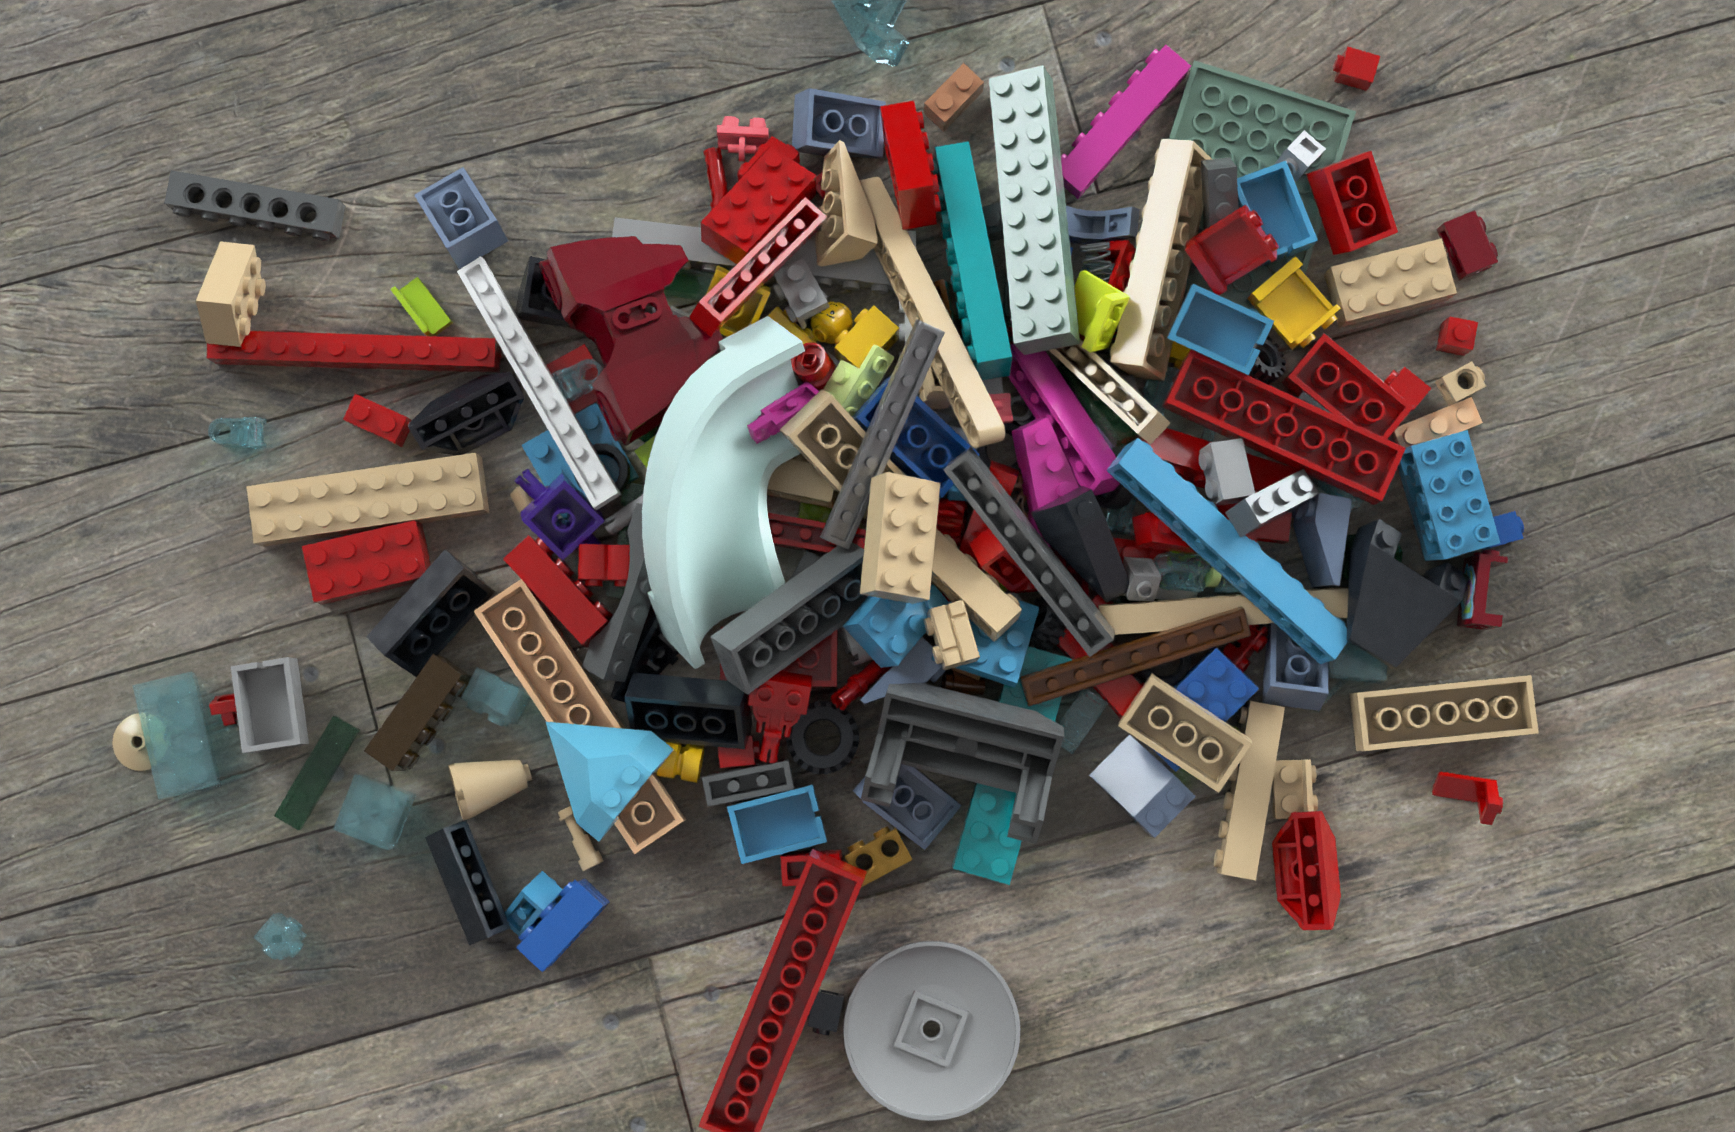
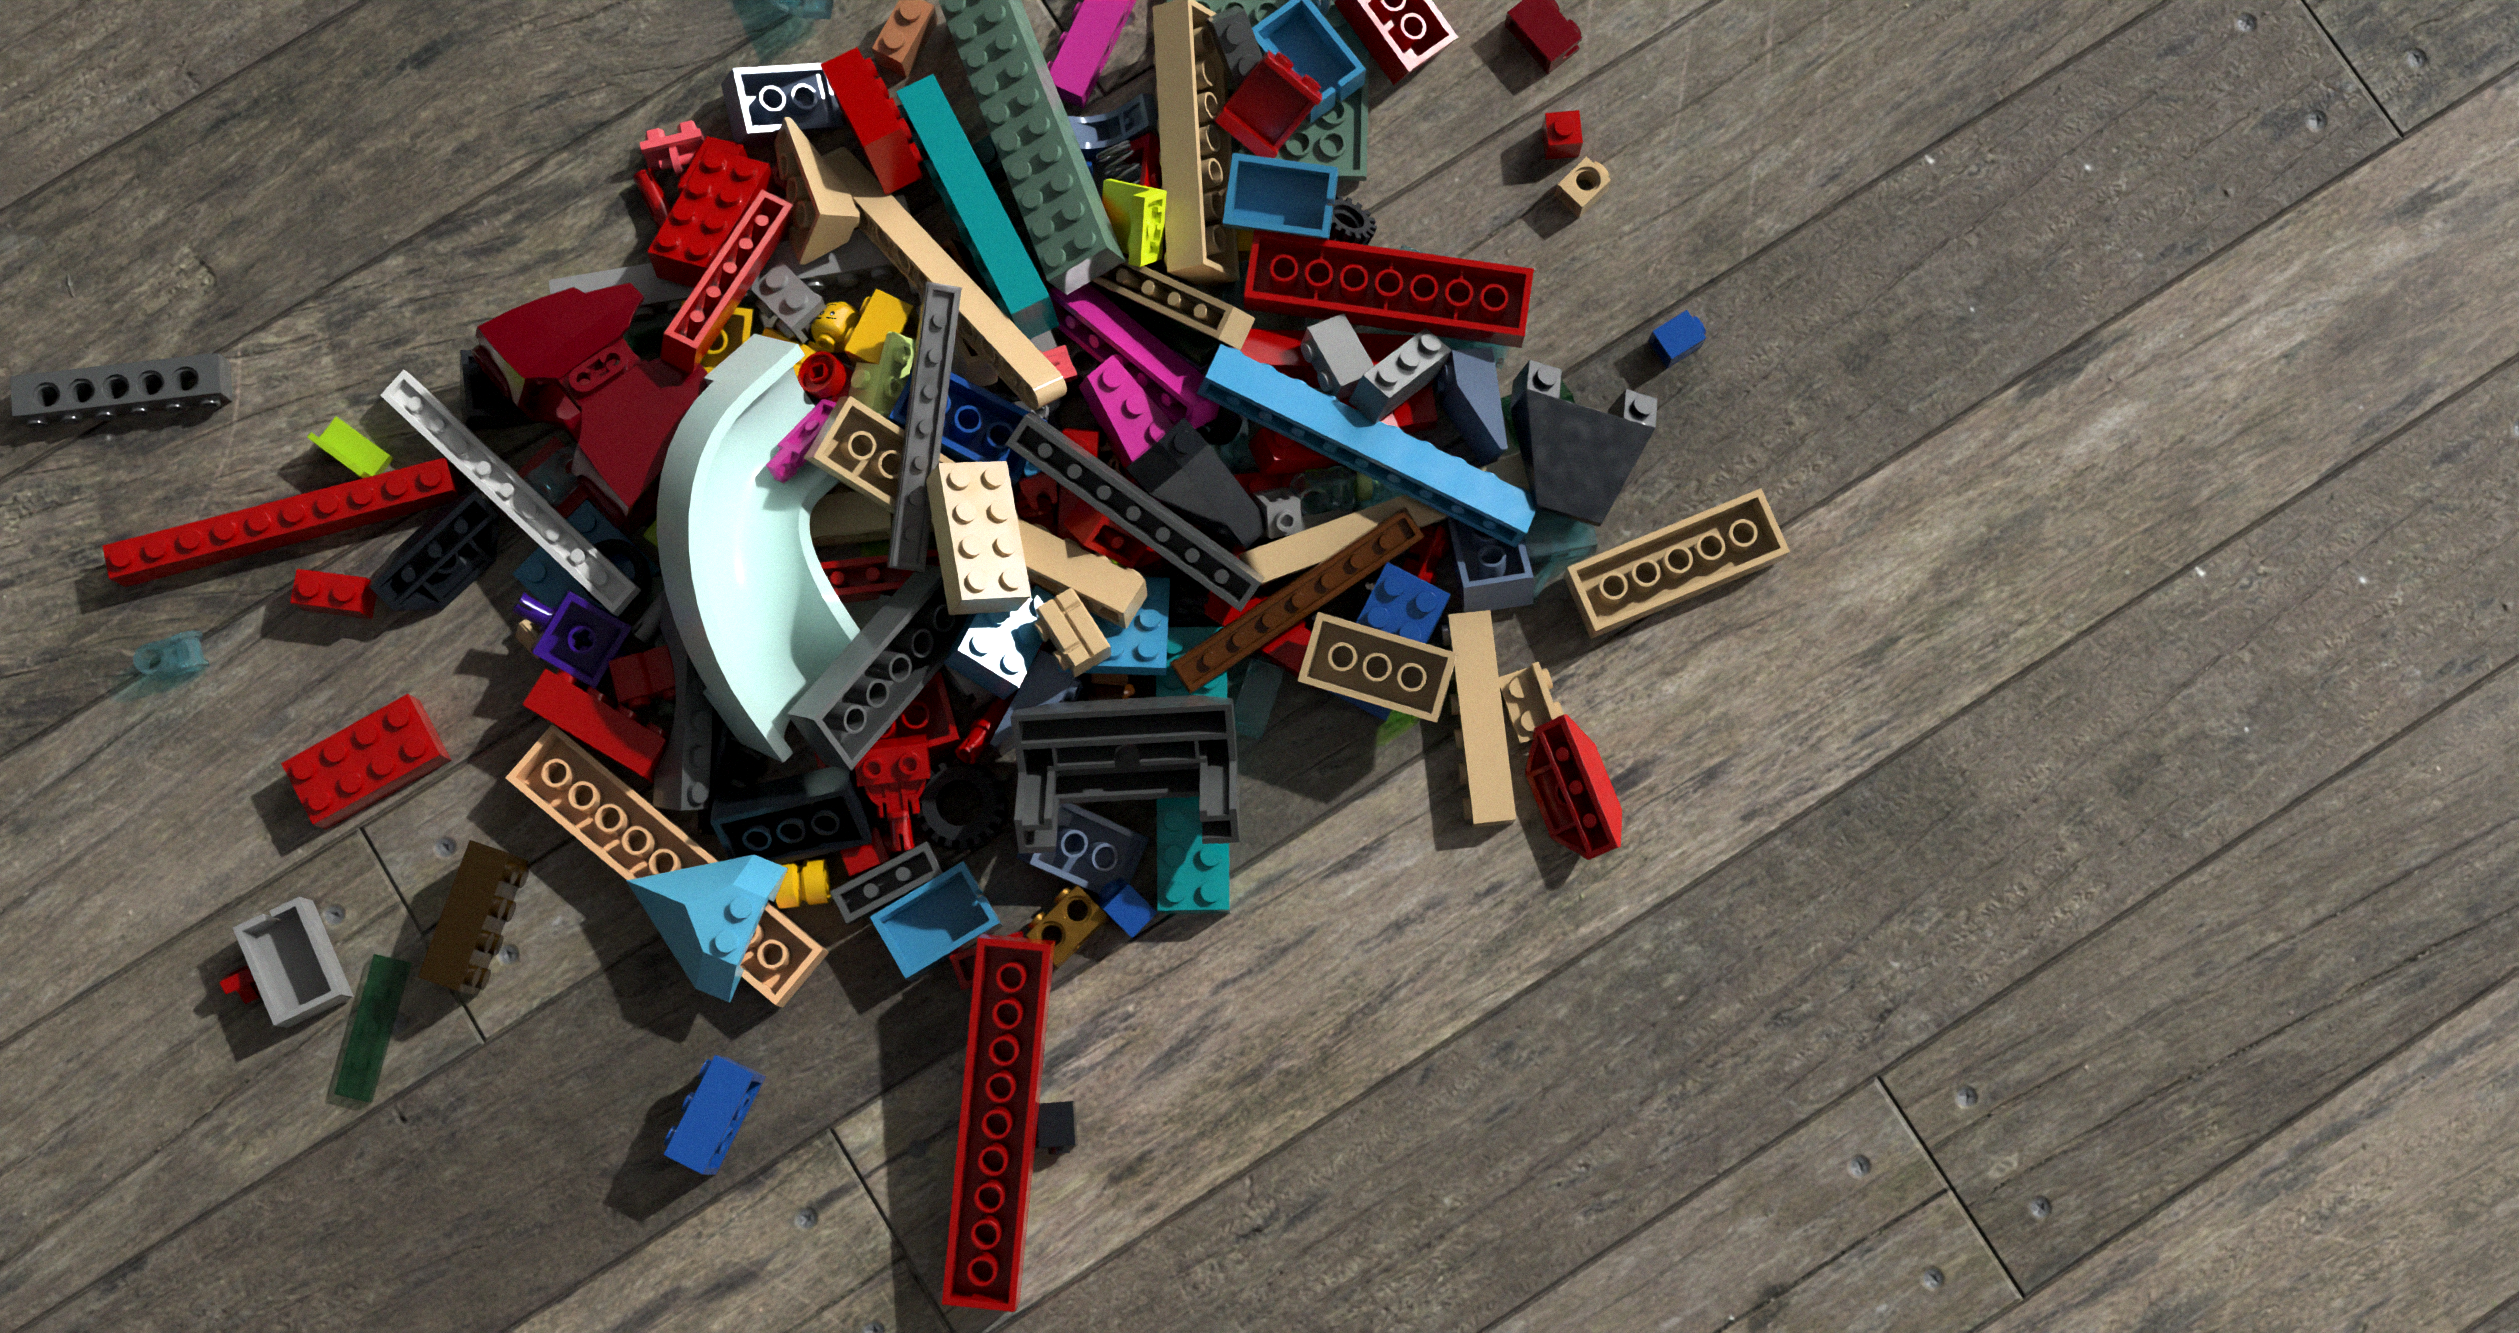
camera: 15 degrees left, 5 degrees down
(124, 747) = (167, 1060): tan dish -> none
(177, 735) = (191, 1032): clear light blue brick -> none
(230, 294) = (117, 495): tan brick -> none
(277, 928) = (380, 1233): clear light blue brick -> none
(367, 499) = (345, 686): tan brick -> none
(374, 811) = (453, 1051): clear light blue brick -> none
(430, 613) = (455, 795): black brick -> none
(461, 218) = (370, 334): sand blue slope -> none
(467, 882) = (587, 1100): black brick -> none
(486, 783) = (578, 978): tan cone -> none
(496, 697) = (562, 871): clear light blue brick -> none
(531, 902) = (667, 1100): dark azure slope -> none
(588, 855) = (724, 1028): tan piece -> none
(928, 856) = (1125, 906): none -> blue brick
(939, 1073) = (1134, 1100): light grey dish -> none
(956, 502) = (1037, 484): none -> red tile
(1142, 786) = (1353, 752): slope -> none
(1293, 305) = (1364, 152): yellow panel -> none
(1347, 388) = (1452, 225): red brick -> none
(1390, 283) = (1467, 98): tan brick -> none
(1407, 386) = (1521, 212): red brick -> none
(1440, 423) = (1571, 243): light nougat plate -> none
(1447, 497) = (1601, 314): dark azure brick -> none
(1471, 789) = (1735, 642): red bracket -> none
(1473, 605) = (1674, 441): dark red panel -> none

